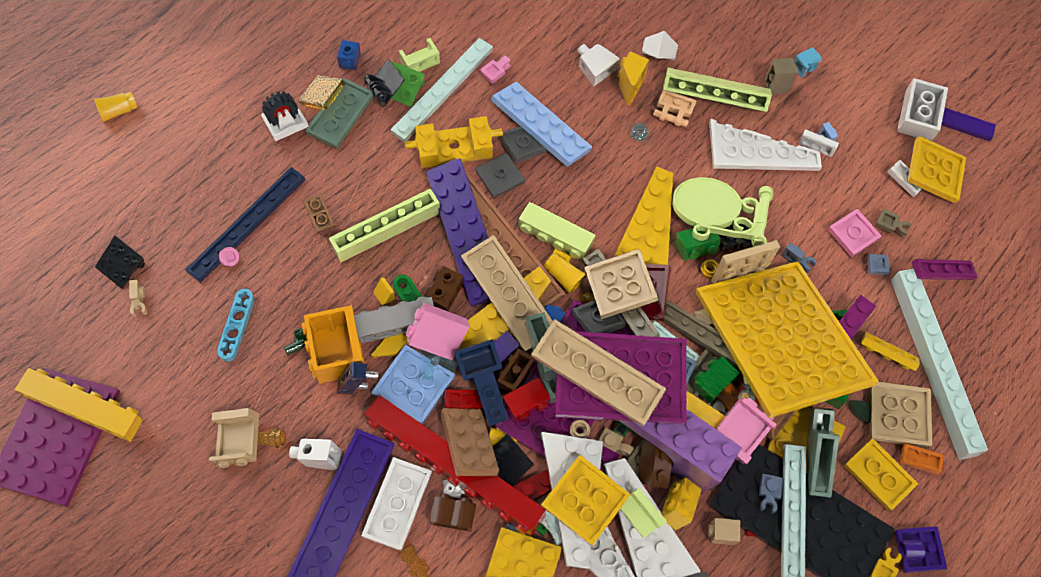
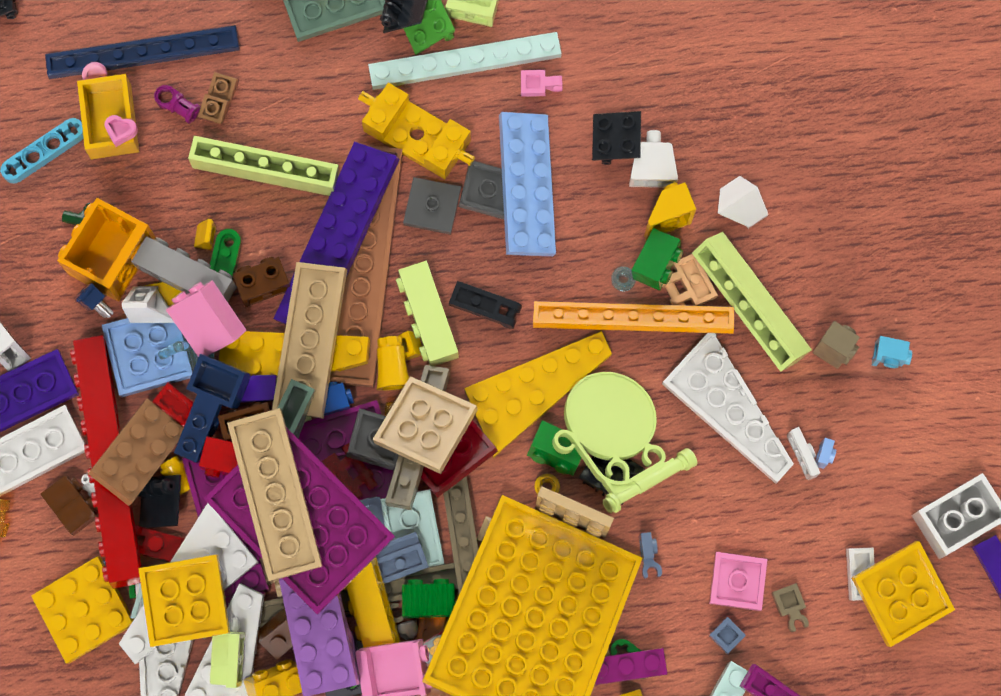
camera: 45 degrees right, 10 degrees up
(262, 271) = (98, 101): none -> yellow piece
(280, 268) = (120, 130): none -> bright pink tile
(297, 233) = (177, 104): none -> magenta connector
(390, 357) = (146, 305): none -> white slope
(565, 62) = (616, 136): none -> black hinge
(581, 202) = (484, 304): none -> black plate
(651, 104) = (657, 259): none -> green brick
(666, 145) = (633, 317): none -> light orange plate

